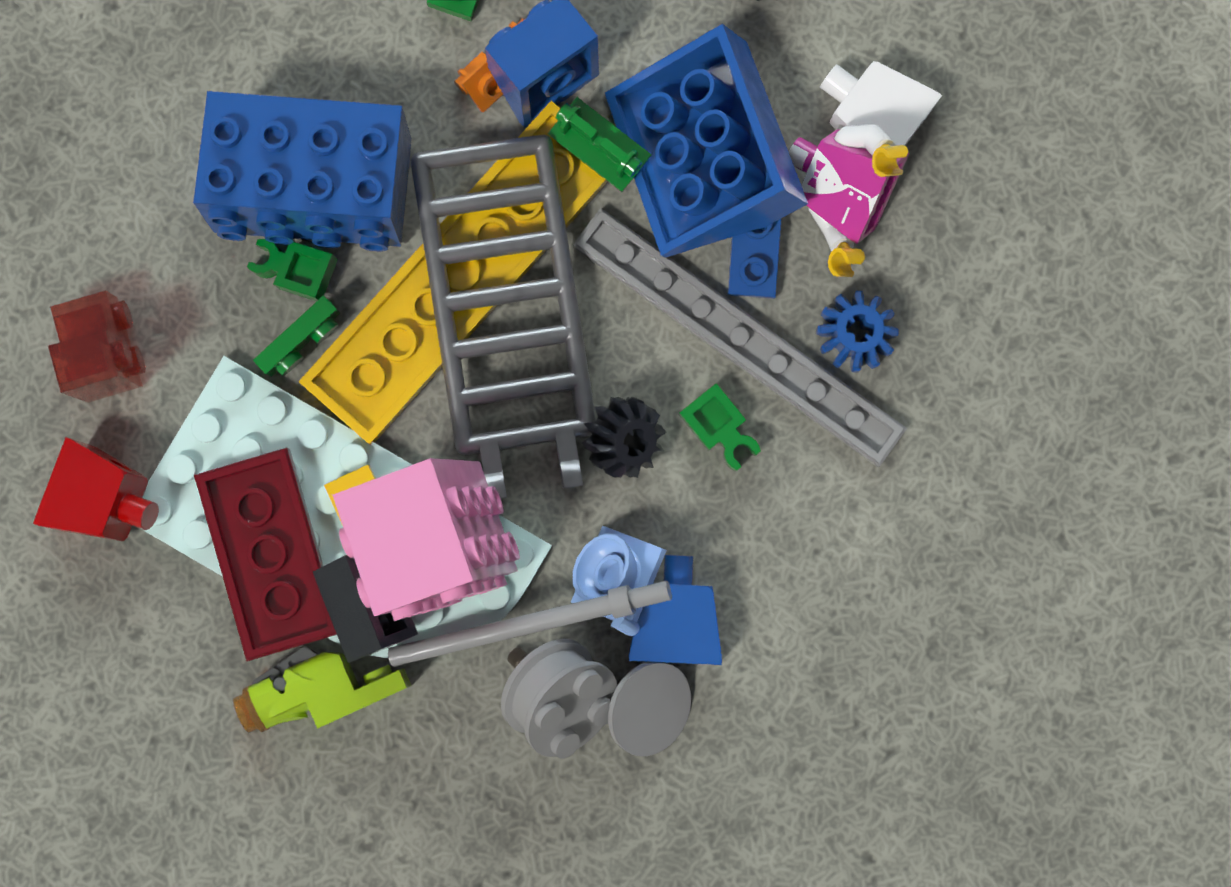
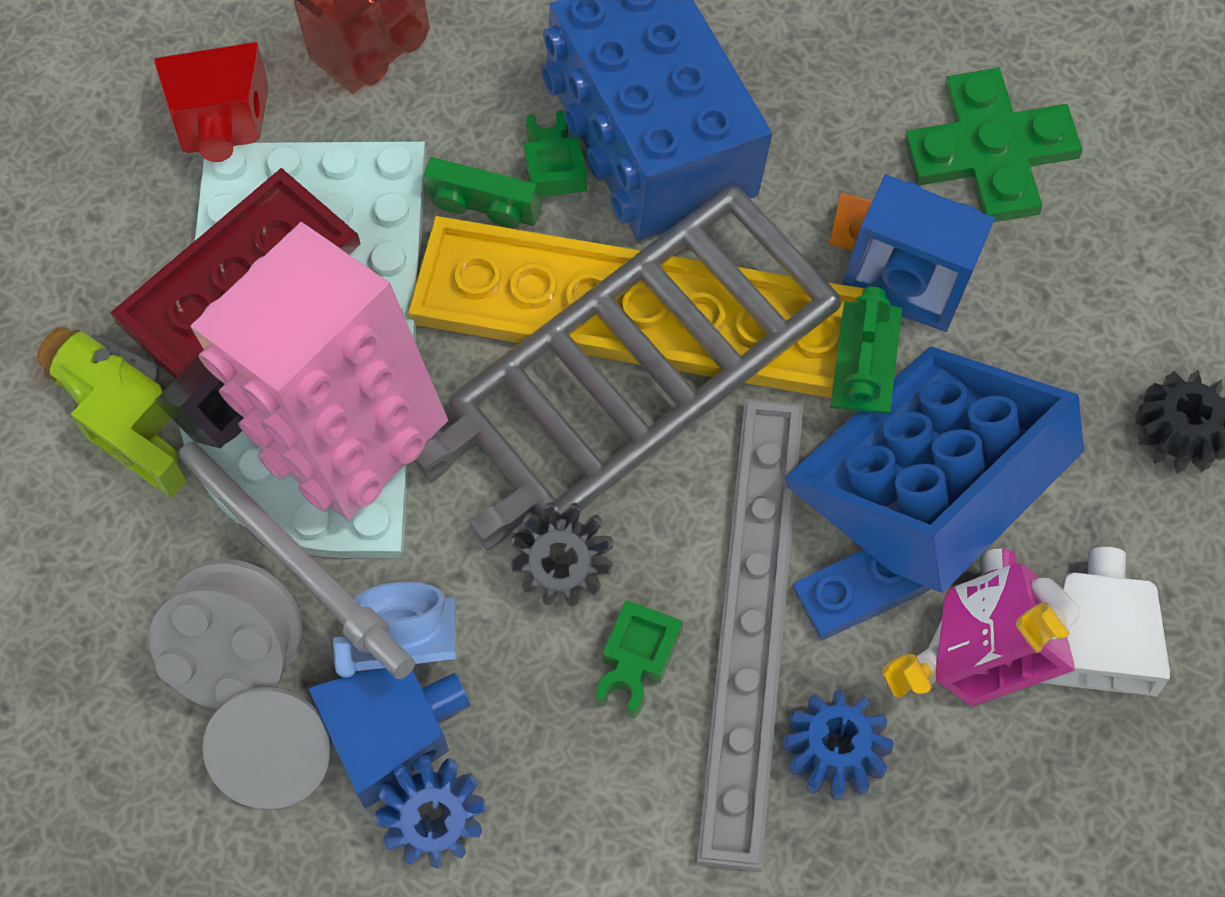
camera: 65 degrees right, 20 degrees down
(756, 622) = (432, 836): none -> blue gear

